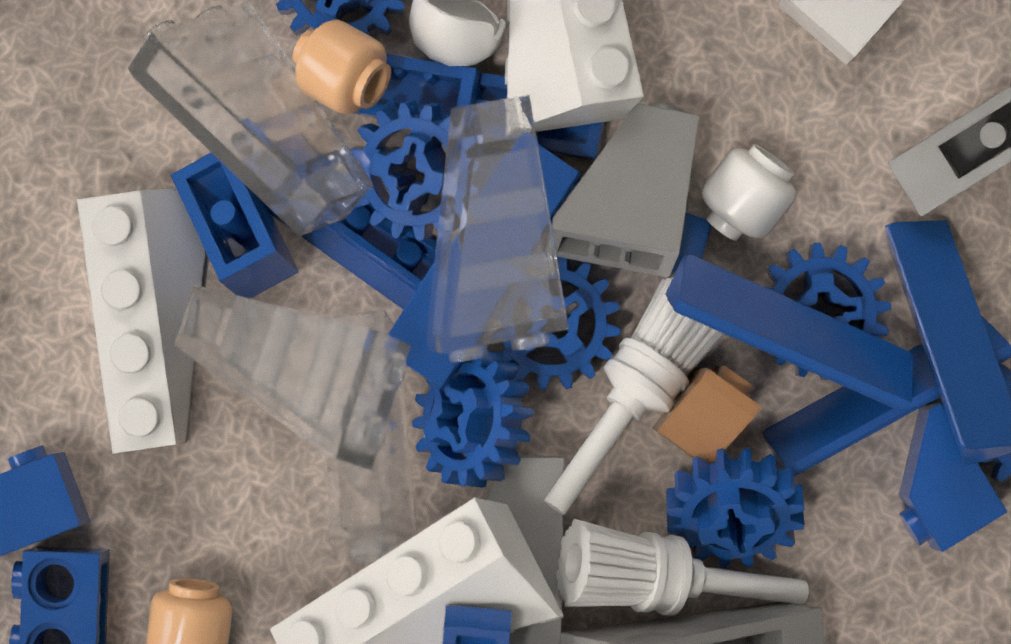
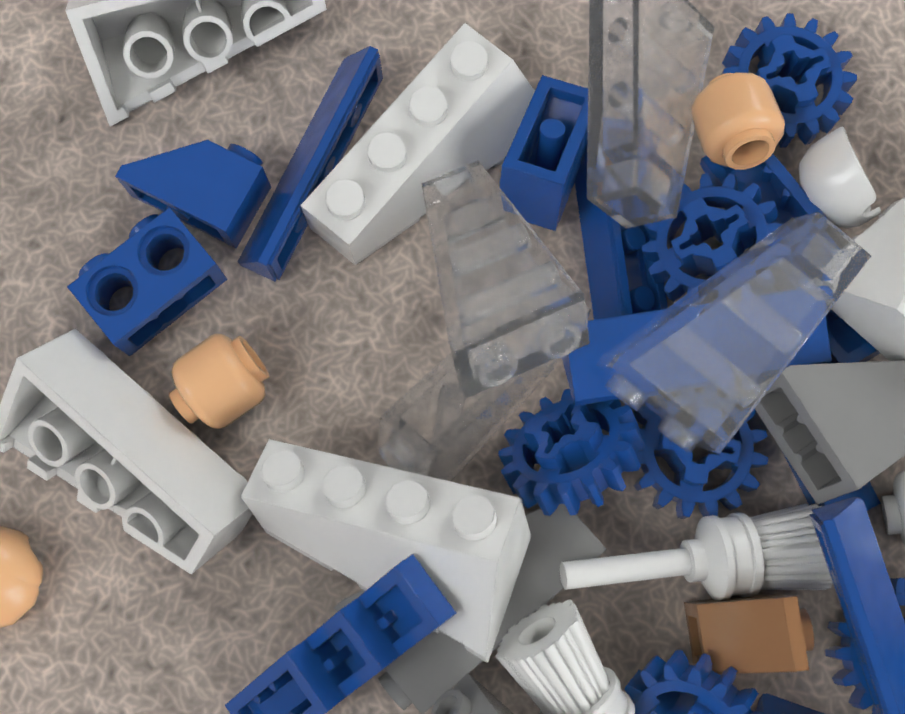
camera: 50 degrees right, 10 degrees down
(75, 405) = (313, 160): none -> blue slope

